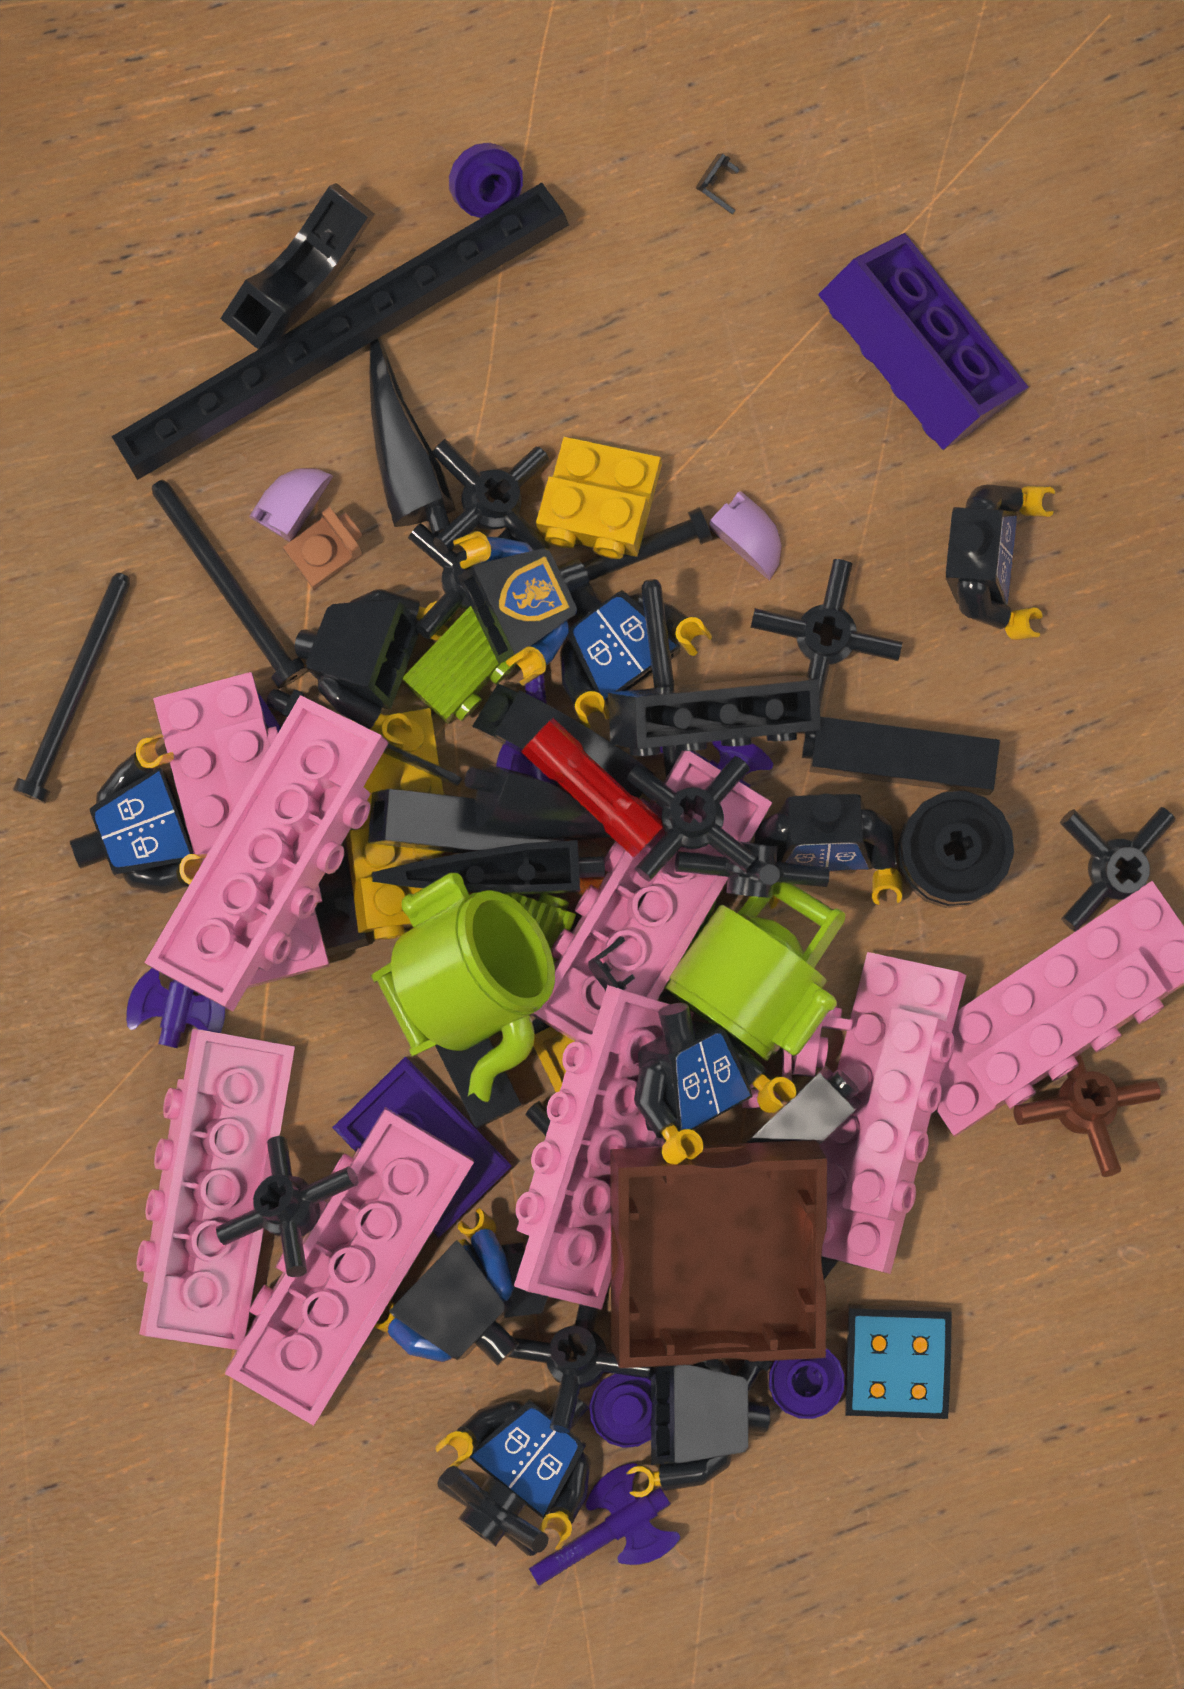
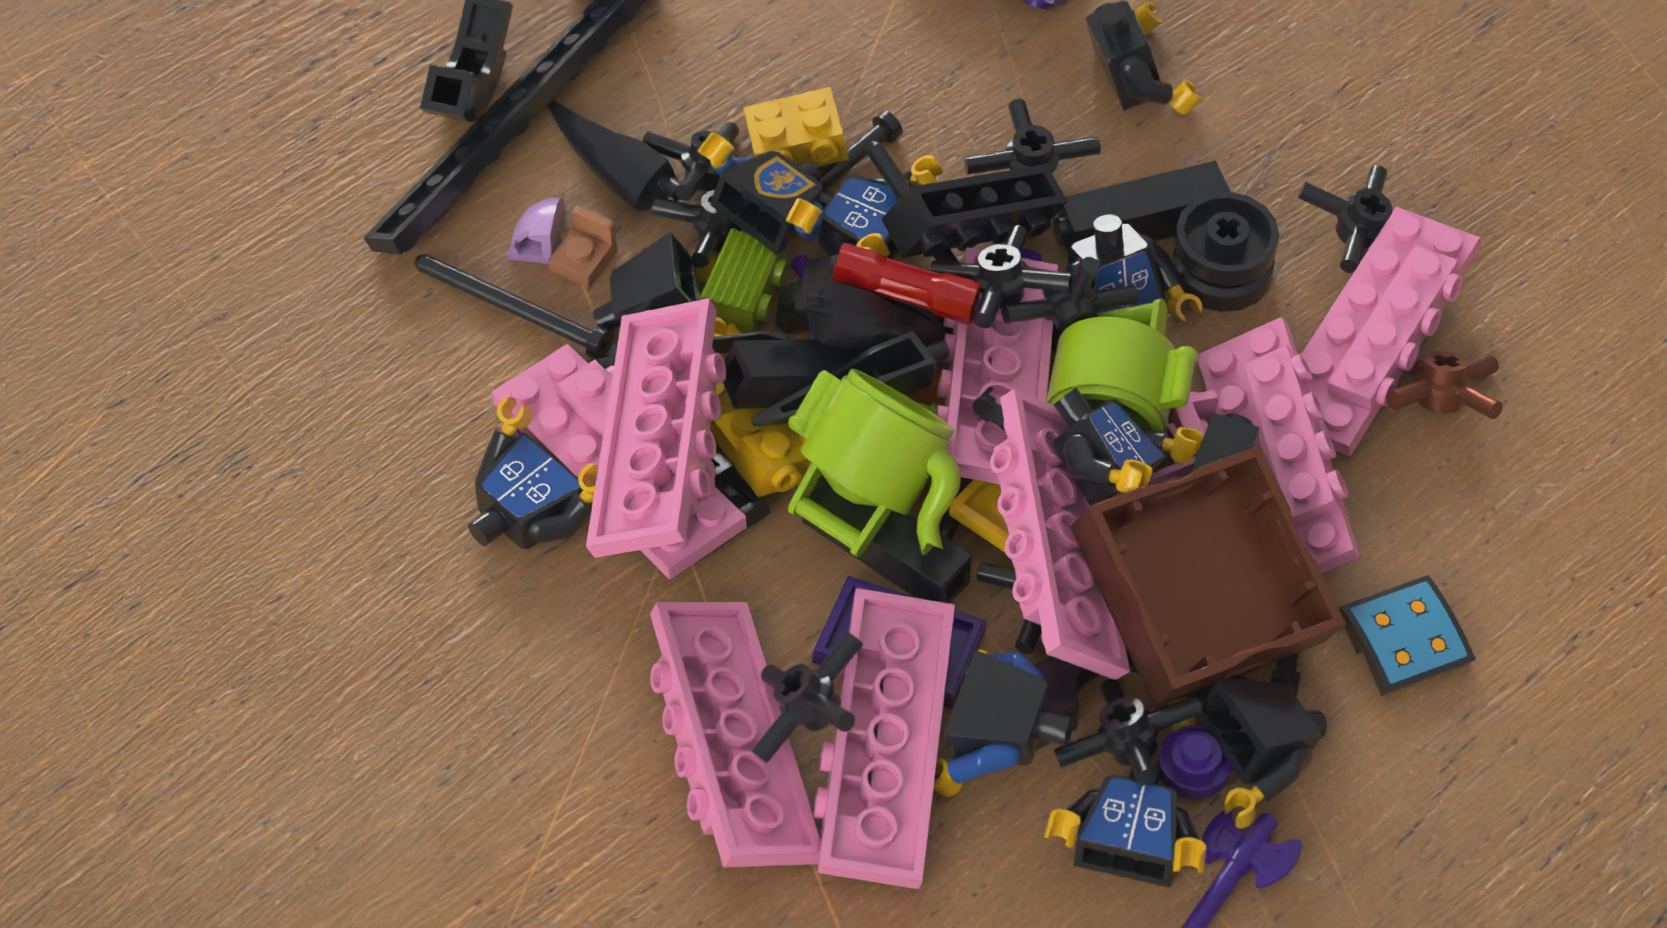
camera: 25 degrees left, 30 degrees down
(74, 690) = (416, 505): black bar -> none
(174, 1006) = (619, 617): dark purple piece -> none
(492, 1511) = (1124, 868): black bar -> none
(749, 533) = (929, 120): lavender brick -> none
(807, 1385) = (1337, 674): dark purple plate -> none

